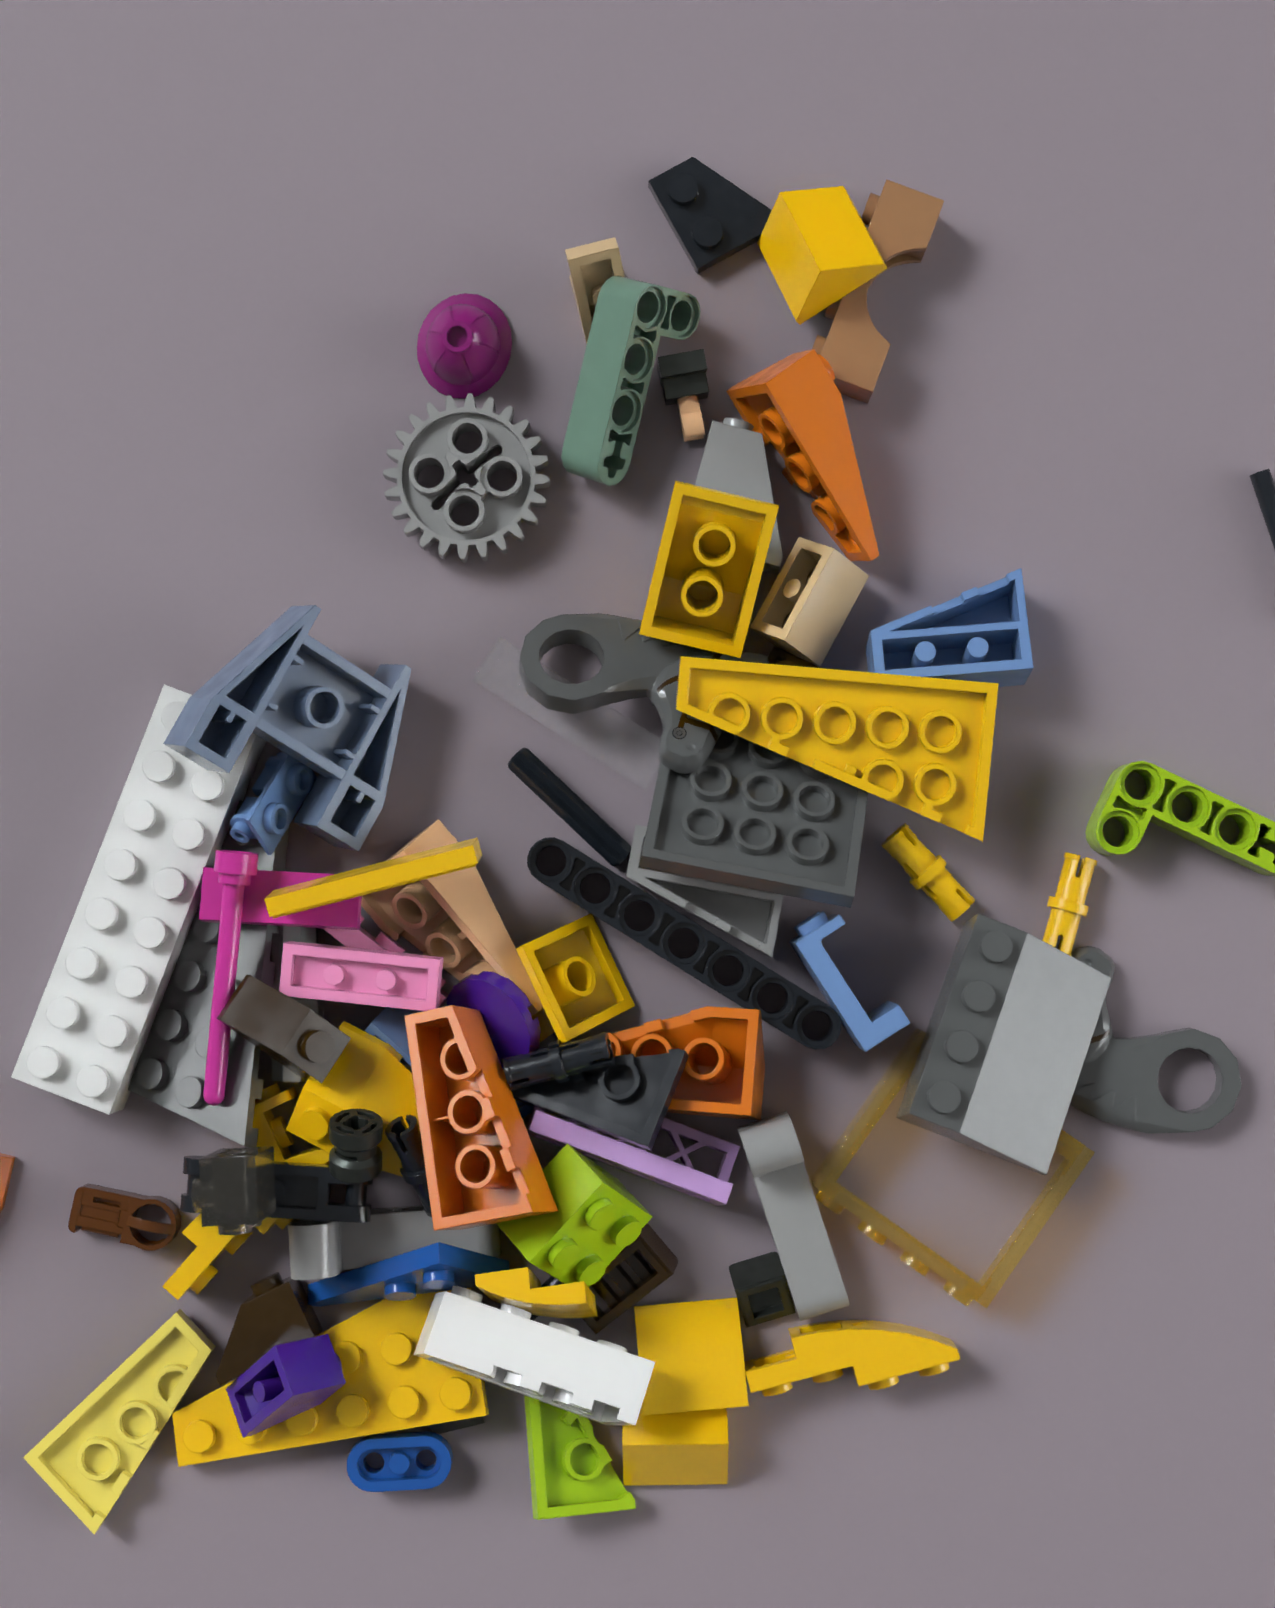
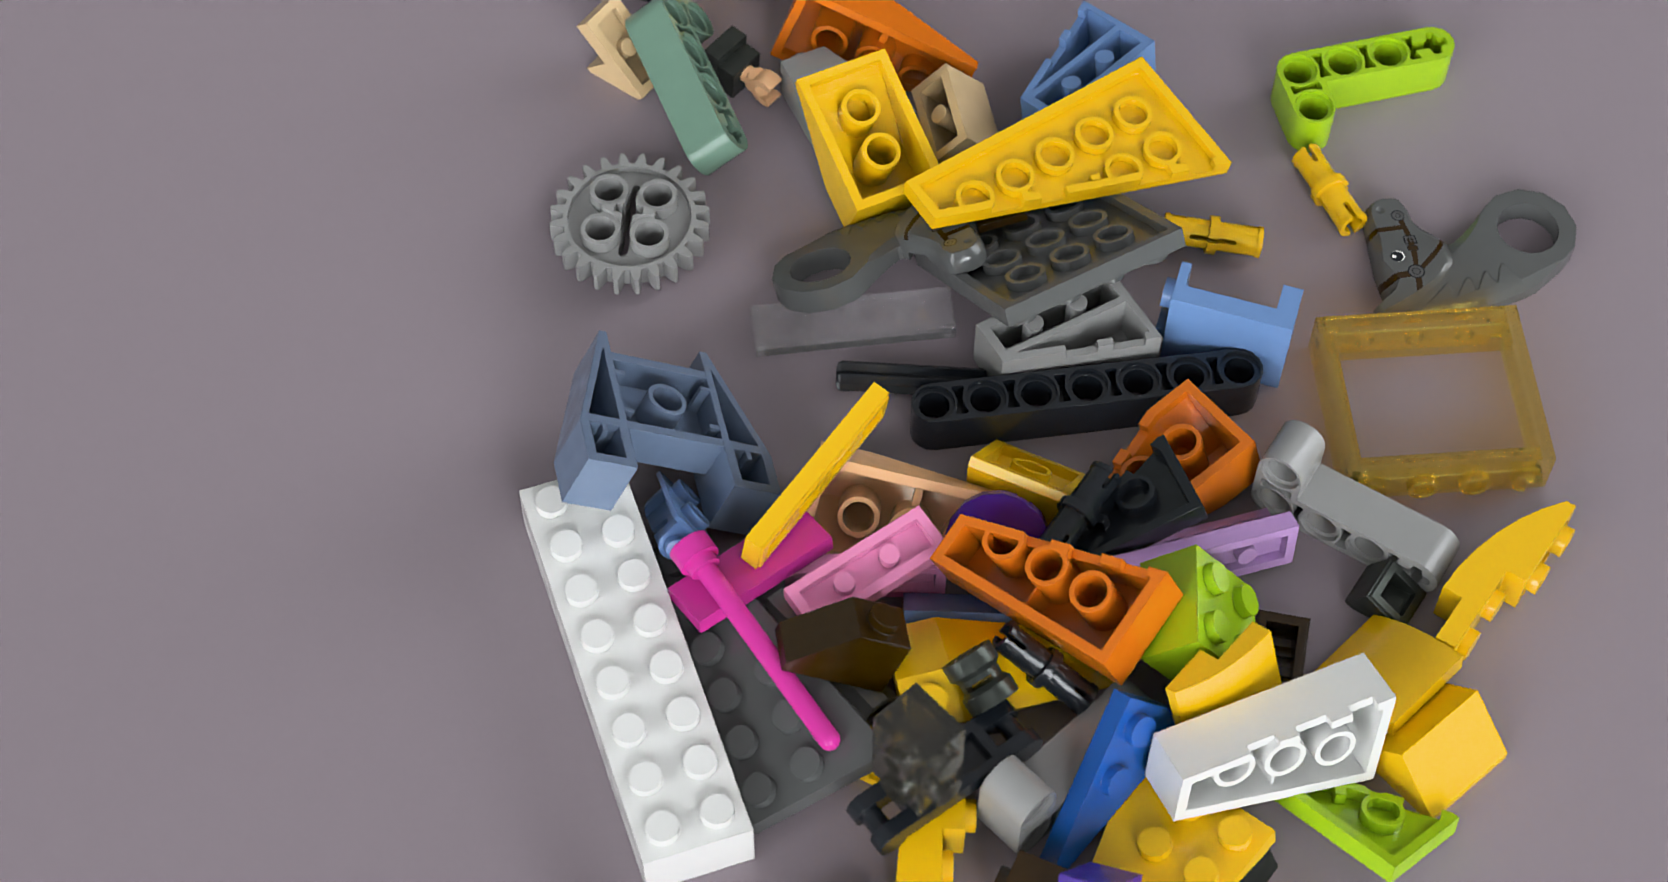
camera: 45 degrees left, 30 degrees down
(464, 345) = (546, 152): magenta hat -> none
(1005, 1044) = (1376, 279): slope -> none

